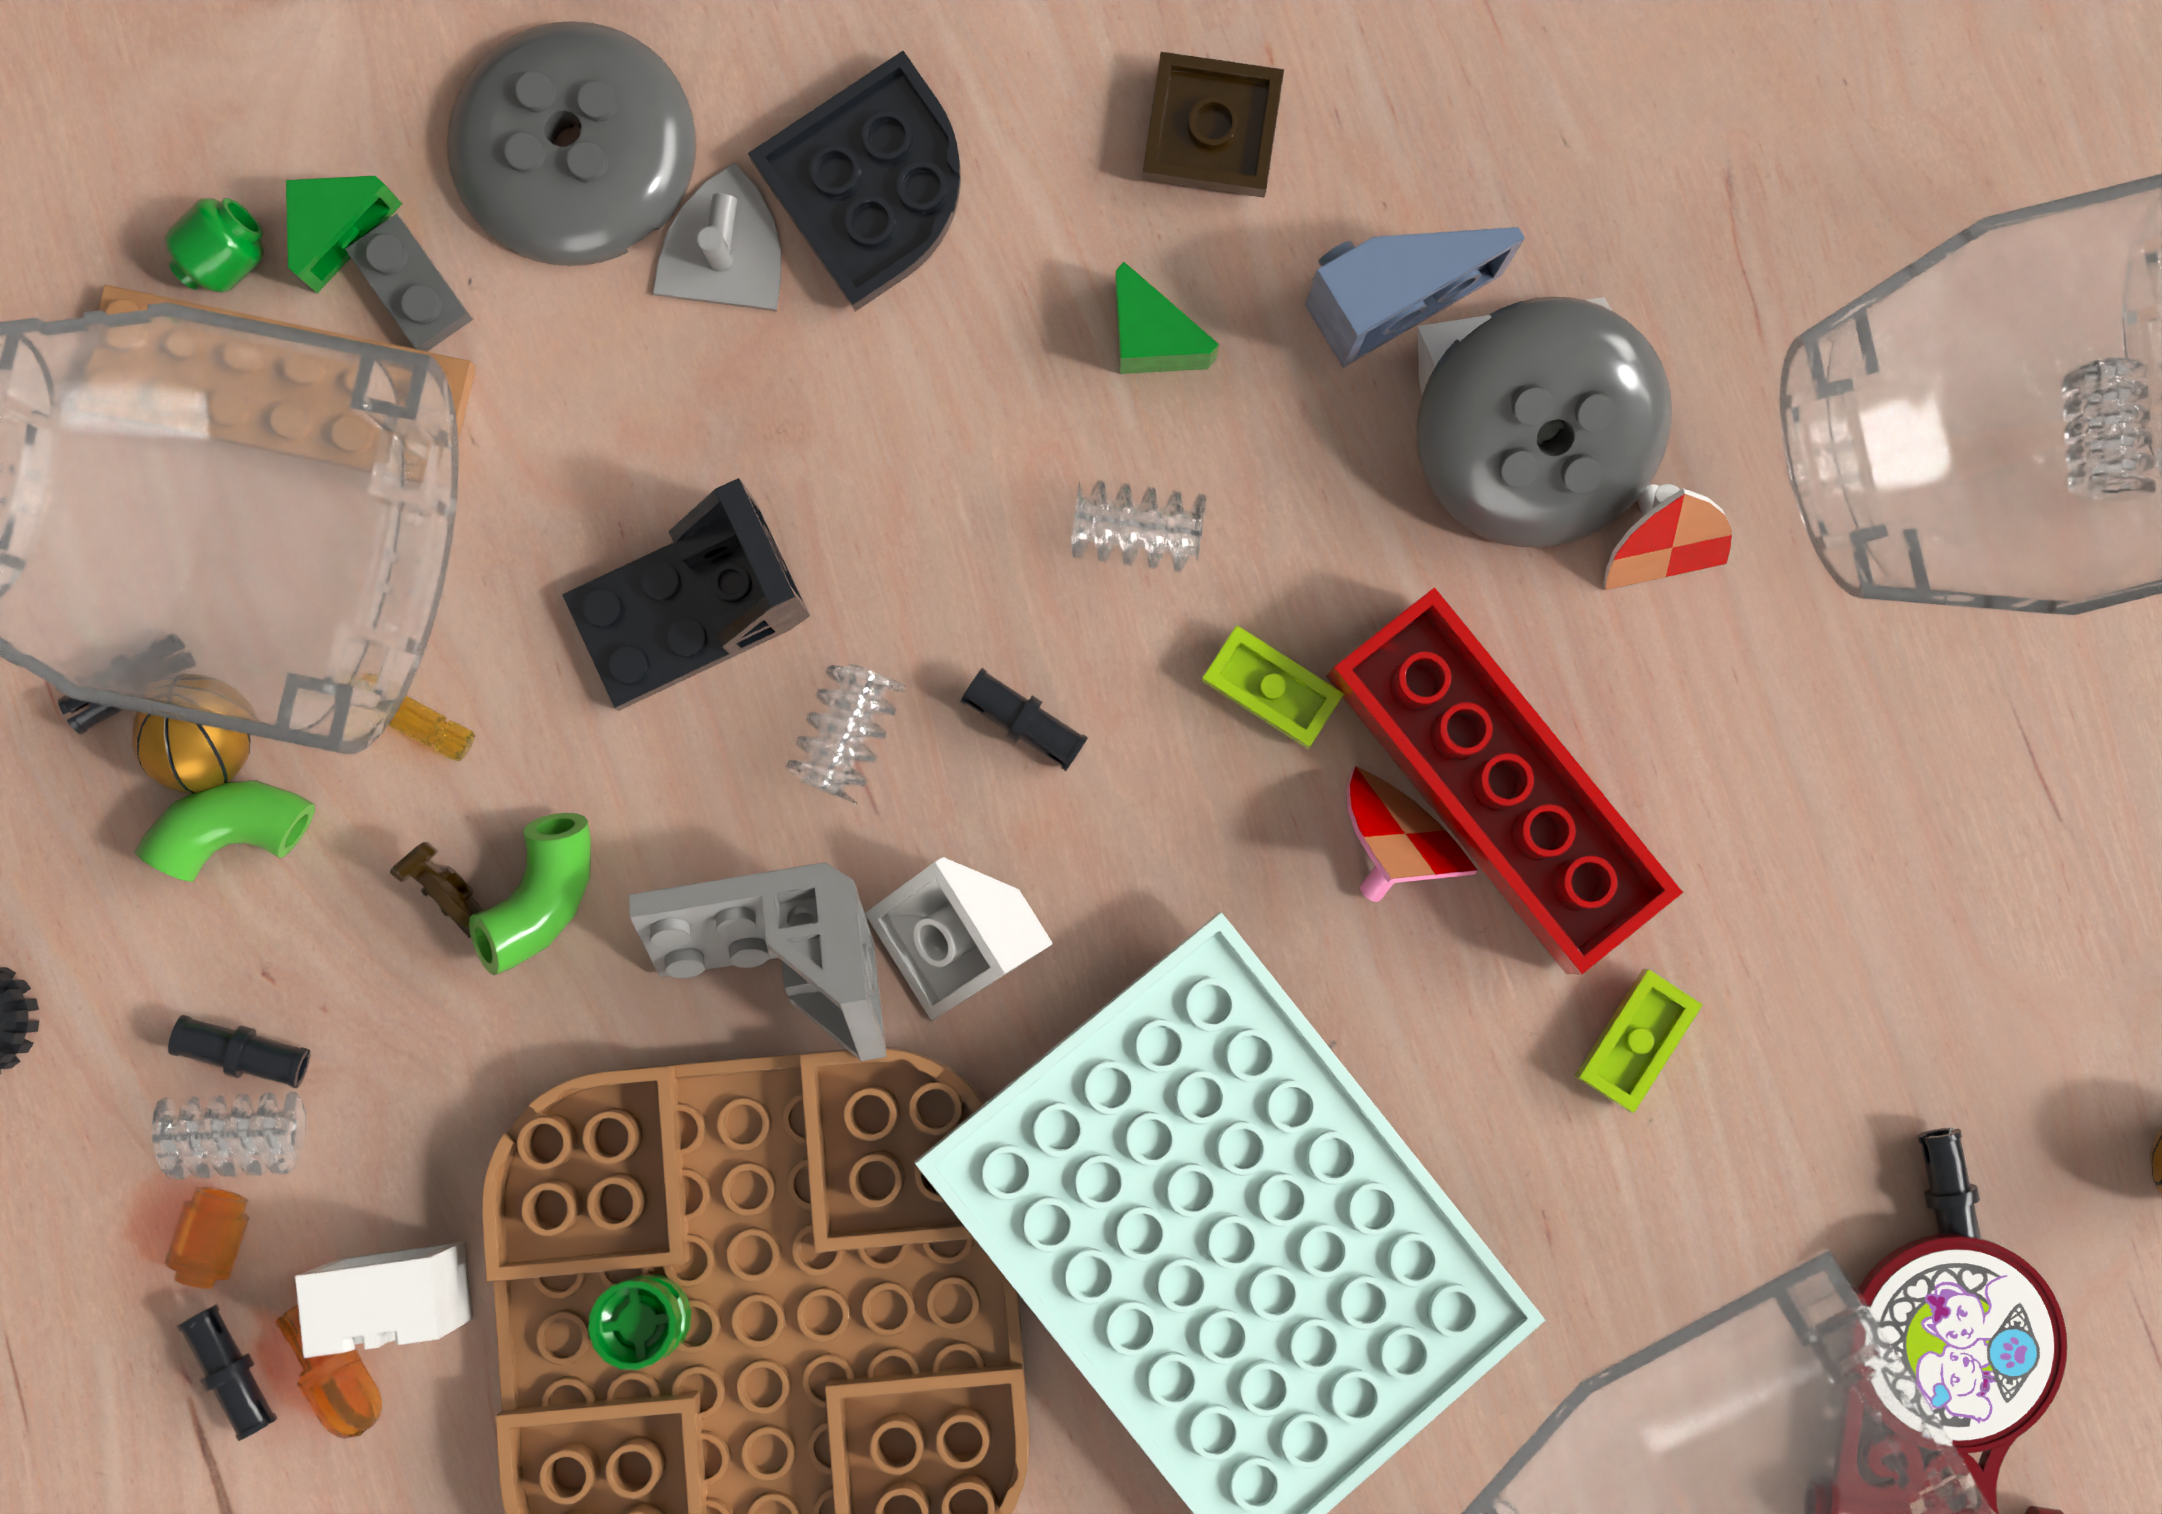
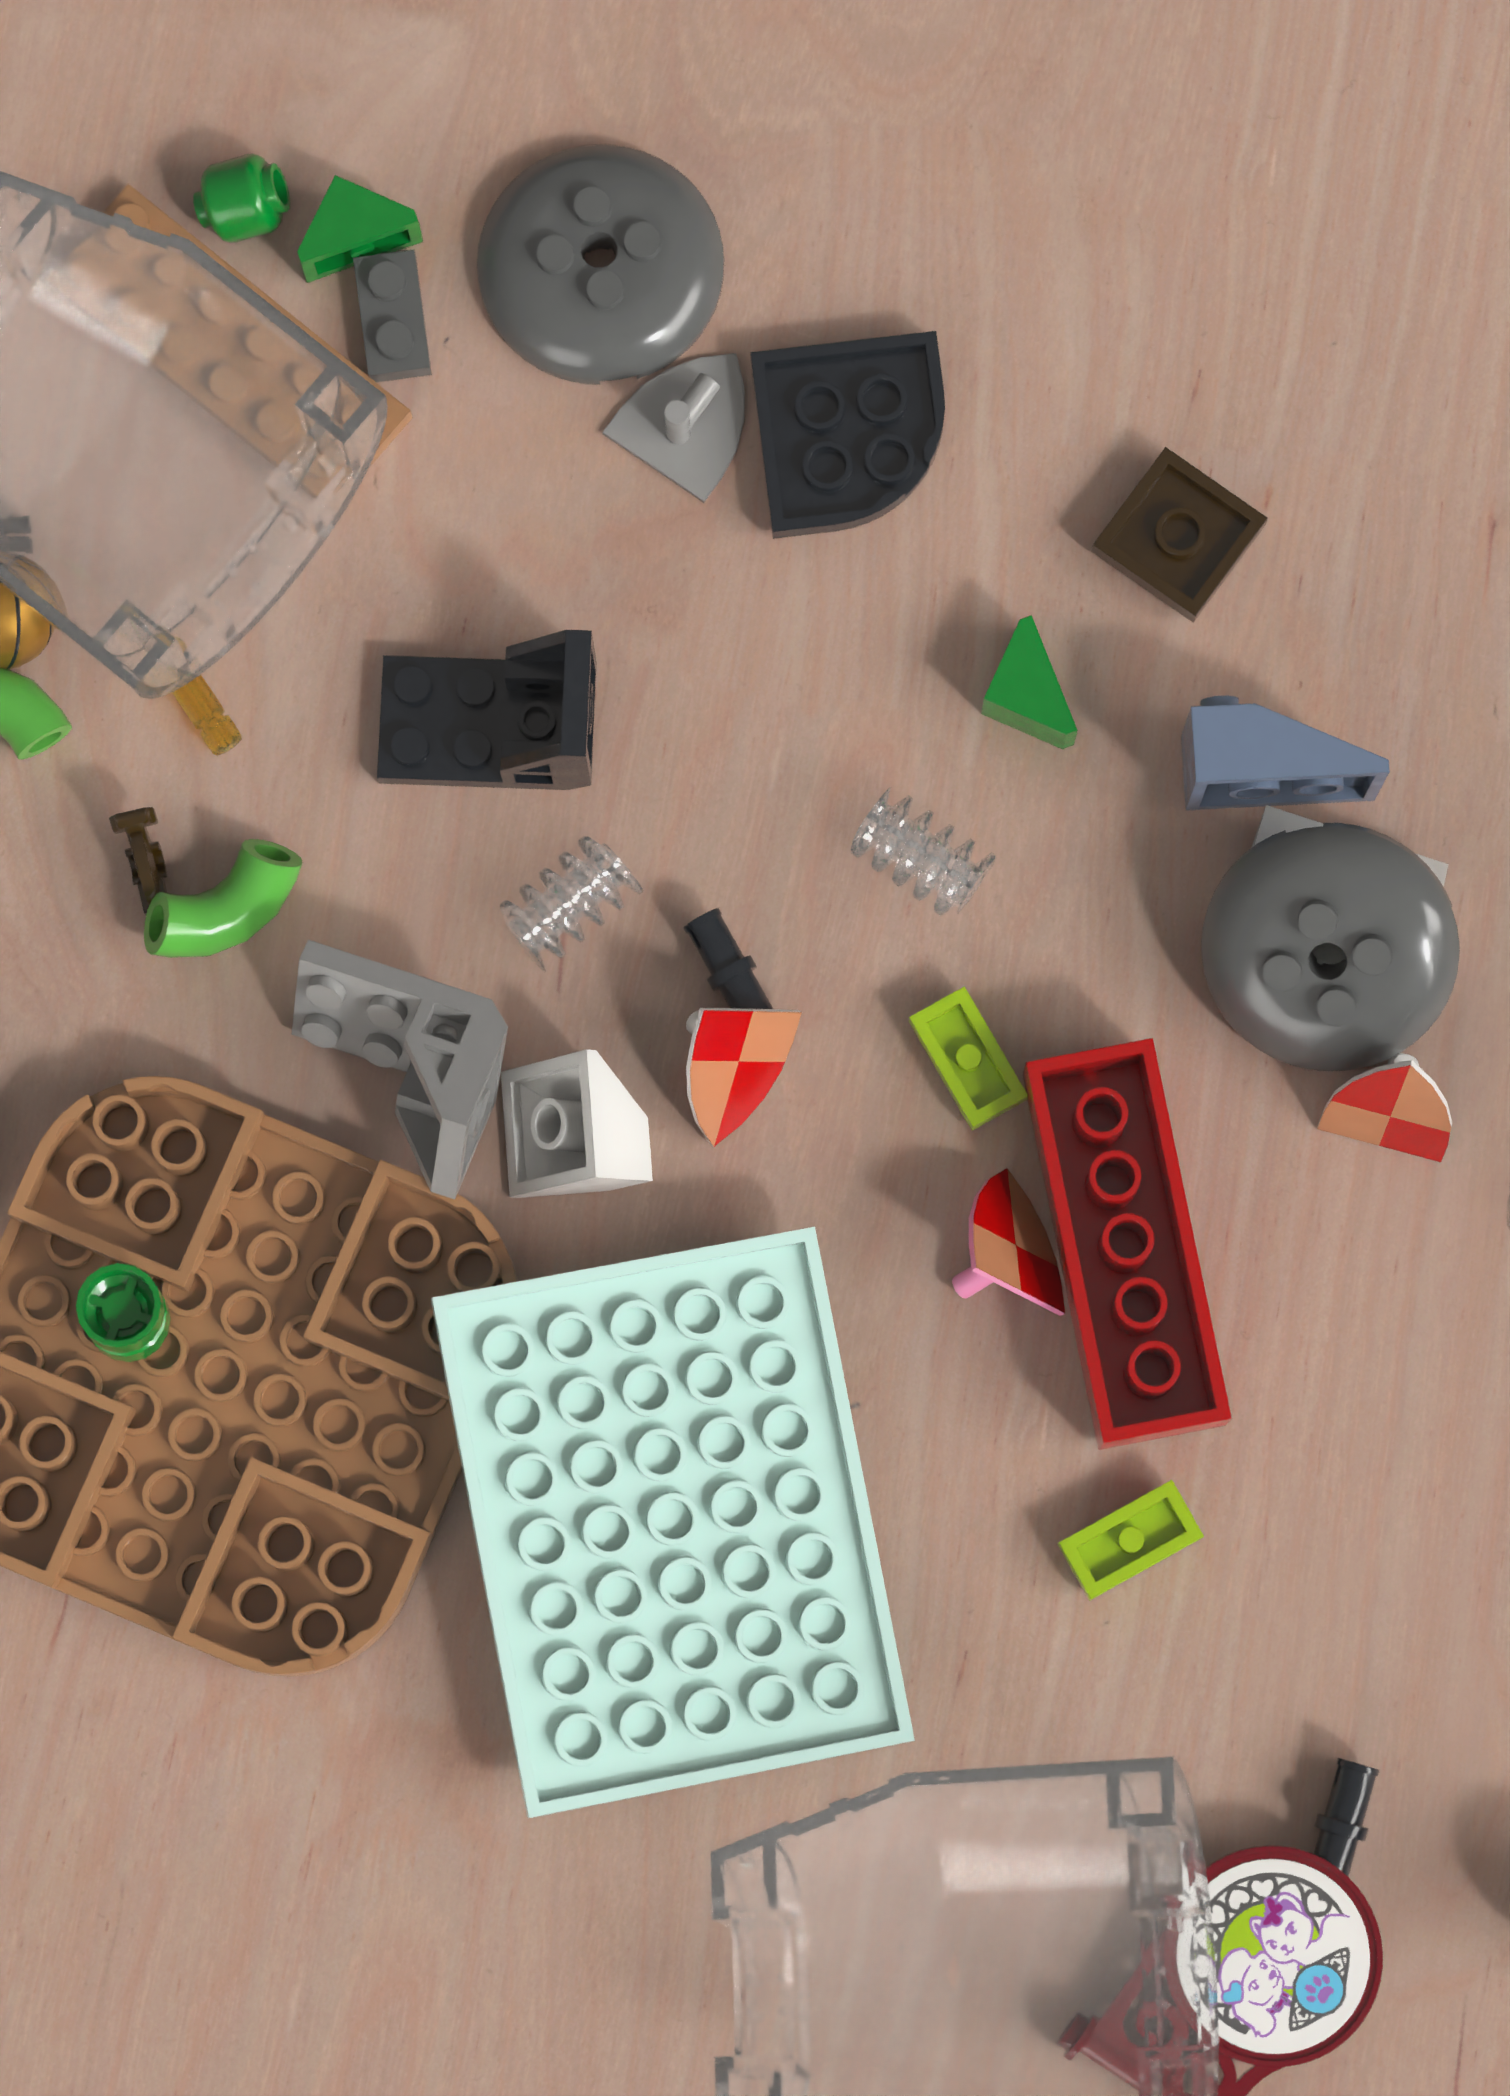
camera: 30 degrees right, 5 degrees down
(1069, 800) = (734, 1063): none -> shield

